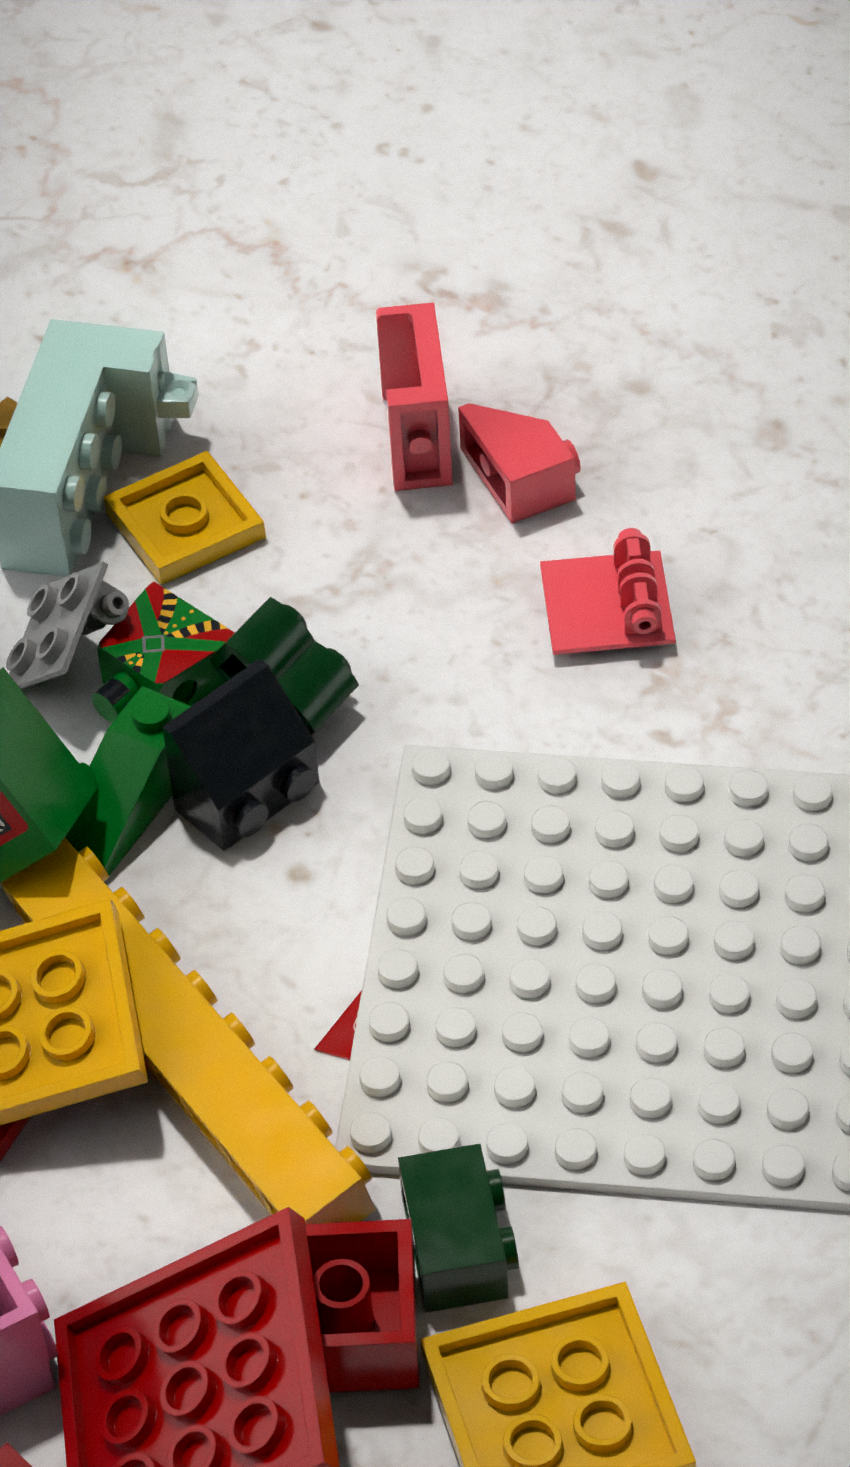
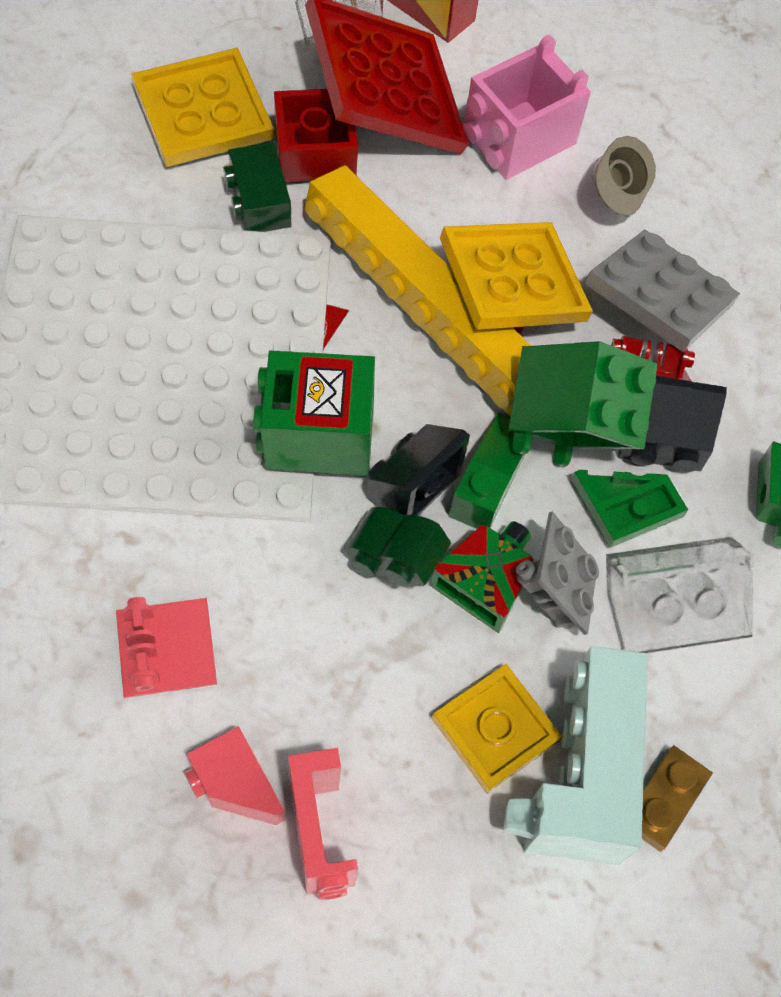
camera: 165 degrees right, 15 degrees up
(379, 794) = (327, 414): none -> green container

